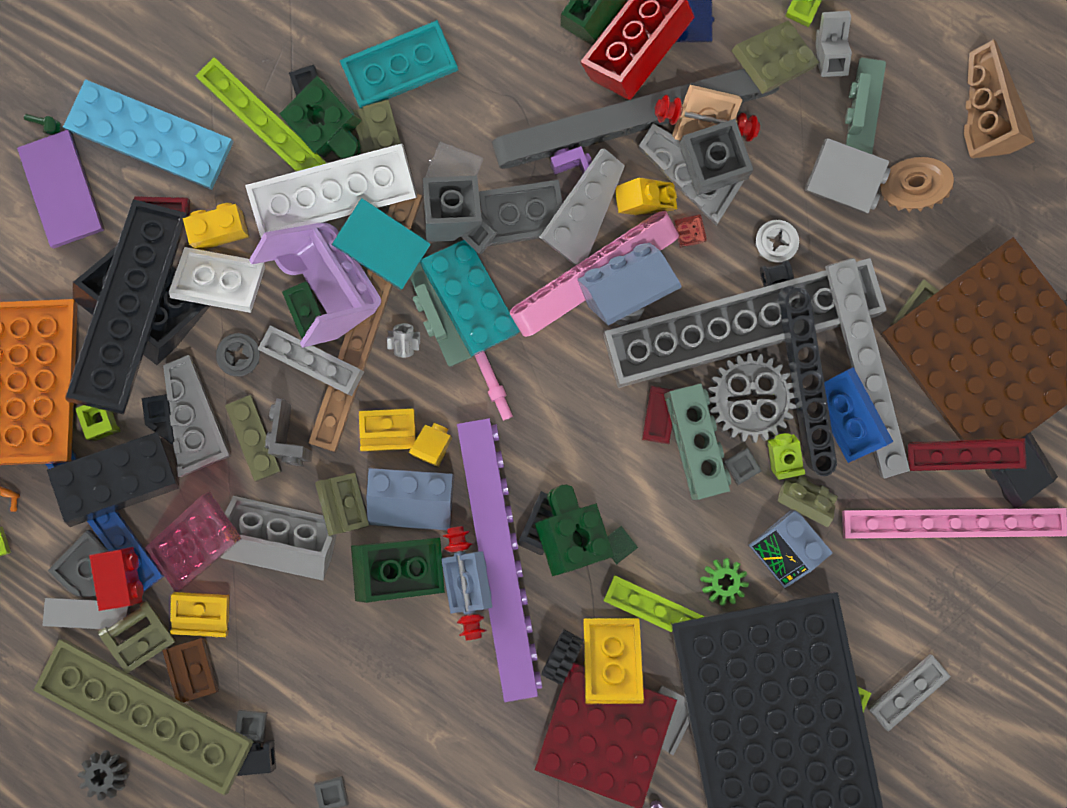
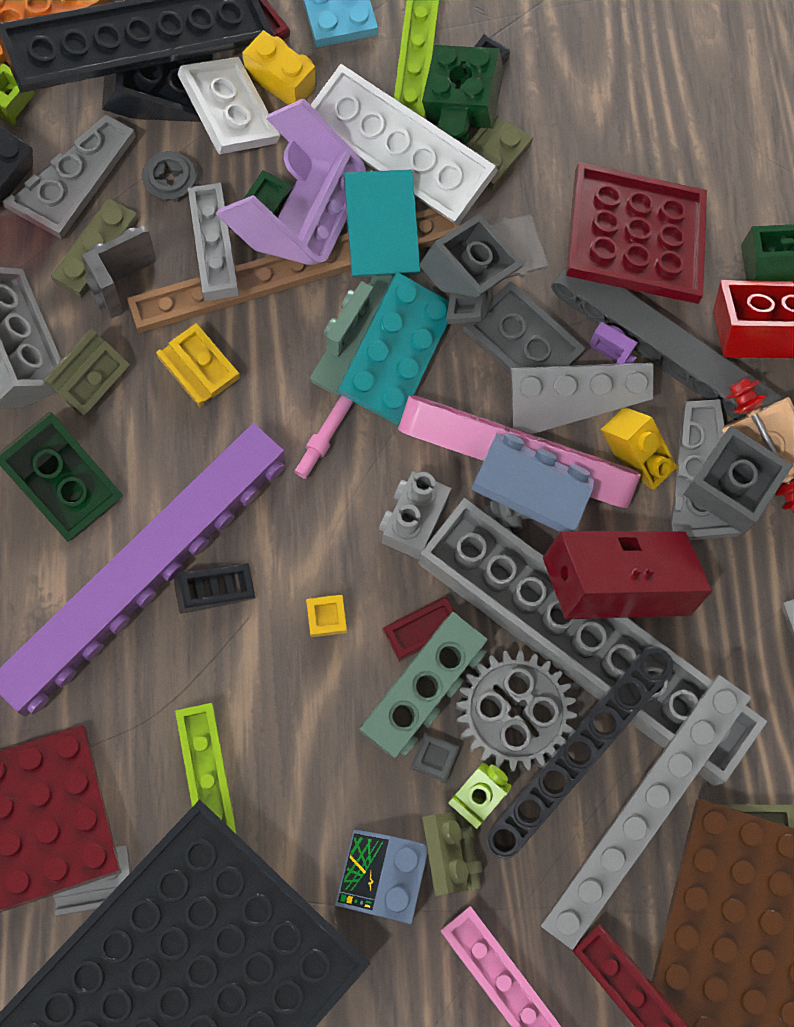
camera: 45 degrees right, 10 degrees down
(157, 416) = (50, 143): black tile -> none
(399, 64) = (574, 124): teal tile -> none
(403, 340) = (301, 315): light grey gear -> none
(409, 499) = (142, 435): sand blue slope -> none
(431, 444) = (212, 414): yellow slope -> none
(466, 583) = (91, 550): sand blue plate -> none
(507, 86) = (637, 233): none -> dark red plate
(561, 533) = (223, 622): dark green brick -> none
(562, 657) = (79, 707): black tyre -> none
(587, 367) = (415, 515): none -> light grey brick
(610, 468) = (326, 616): none -> yellow plate
(612, 661) = (113, 767): yellow plate -> none
(621, 544) = (249, 686): clear green plate -> none
(690, 230) = (641, 516): clear red tile -> none
(724, 271) = (626, 574): none -> dark red brick
(729, 590) = (287, 841): bright green gear -> none
(776, 274) = (671, 638): black bush -> none
(788, 236) = (719, 625): white gear -> none
(854, 417) = (581, 834): blue plate -> none

